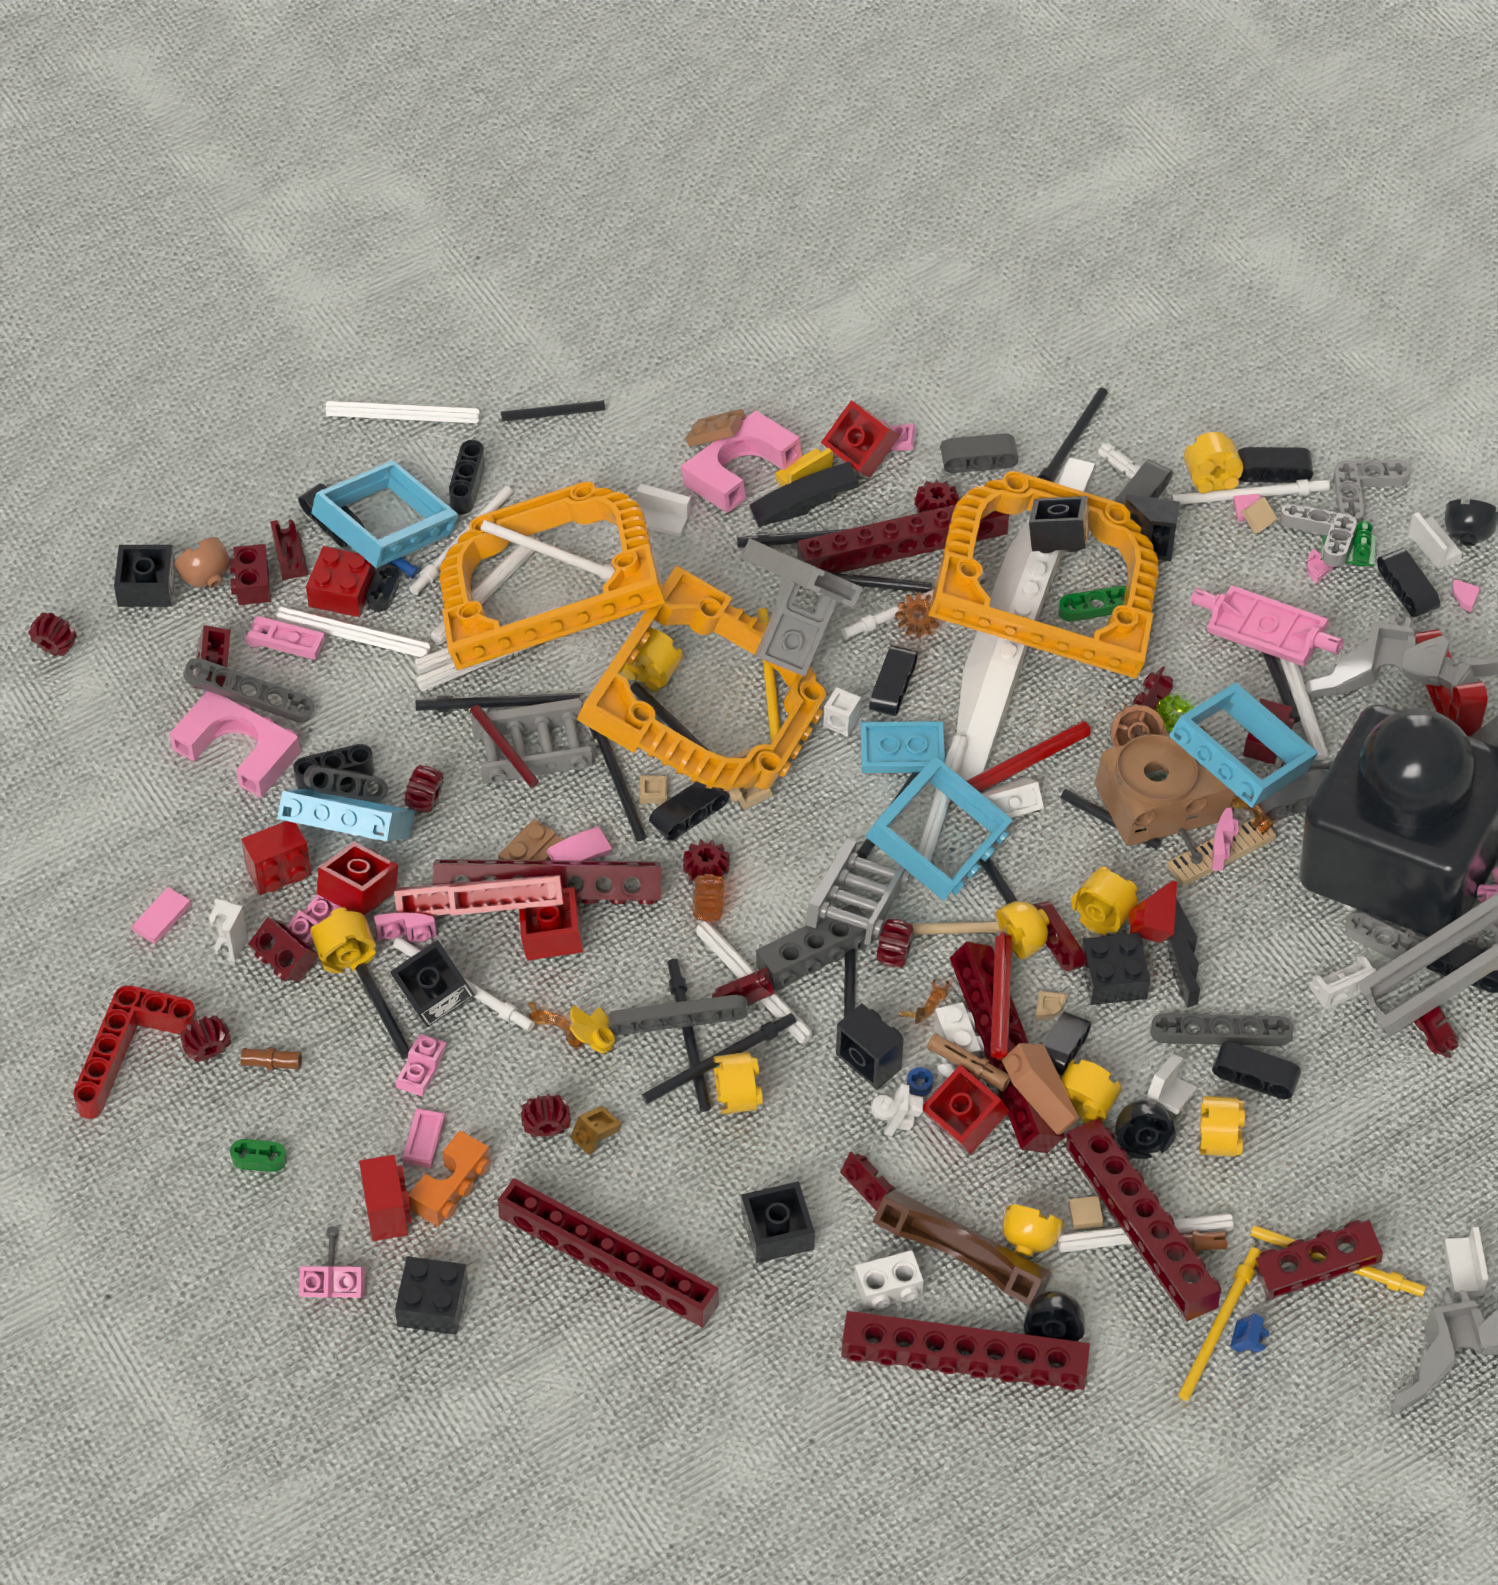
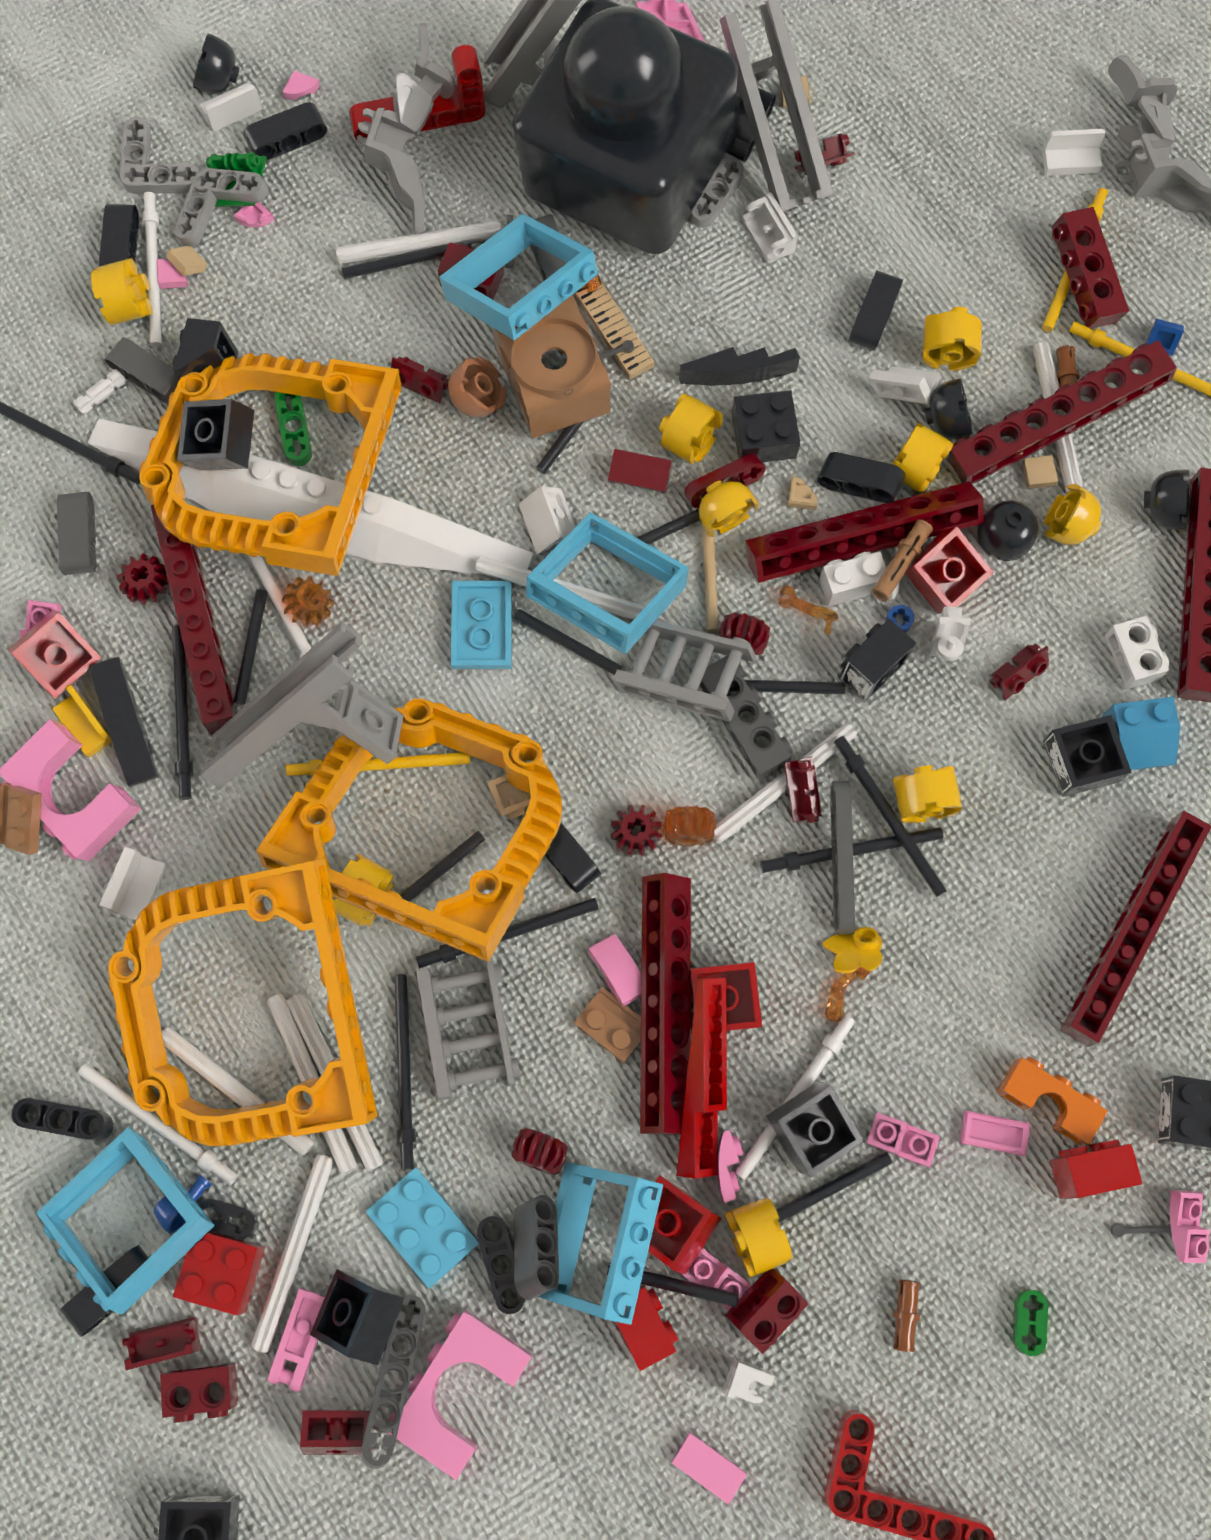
camera: 90 degrees left, 20 degrees up
(204, 565) = (188, 1454): nougat cylinder -> none
(205, 1038) = (894, 1396): dark red gear -> none
(298, 665) = (357, 1317): none -> black brick
(308, 886) = (689, 1288): none -> black bar
(368, 716) = (422, 1227): none -> medium azure plate
(504, 746) = (487, 1056): dark red bar -> none
(545, 1116) = (976, 996): dark red gear -> none
(594, 1127) = (977, 945): pearl gold bracket -> none
(605, 572) = (221, 947): white bar -> none
(652, 789) = (535, 892): tan tile -> none
(803, 1279) = (1147, 731): none -> dark azure slope
(842, 711) = (440, 682): white brick -> none
(893, 680) = (393, 631): black beam -> none
(924, 1225) = (1125, 533): reddish brown arch -> none
(1001, 996) = (822, 526): red axle -> none
(1018, 1178) = (1008, 530): none -> black cylinder
(1030, 756) = (499, 501): red axle -> none
(1040, 1084) = (929, 492): nougat slope -> none
(1062, 867) = (640, 470): none -> dark red hinge
(1155, 915) = (708, 380): red slope -> none
(1166, 707) = (439, 362): clear neon green gear -> none
(1225, 830) = (600, 315): bright pink slope -> none
(1234, 1023) = (826, 352): dark grey beam -> none
(1267, 624) = (341, 257): bright pink plate -> none

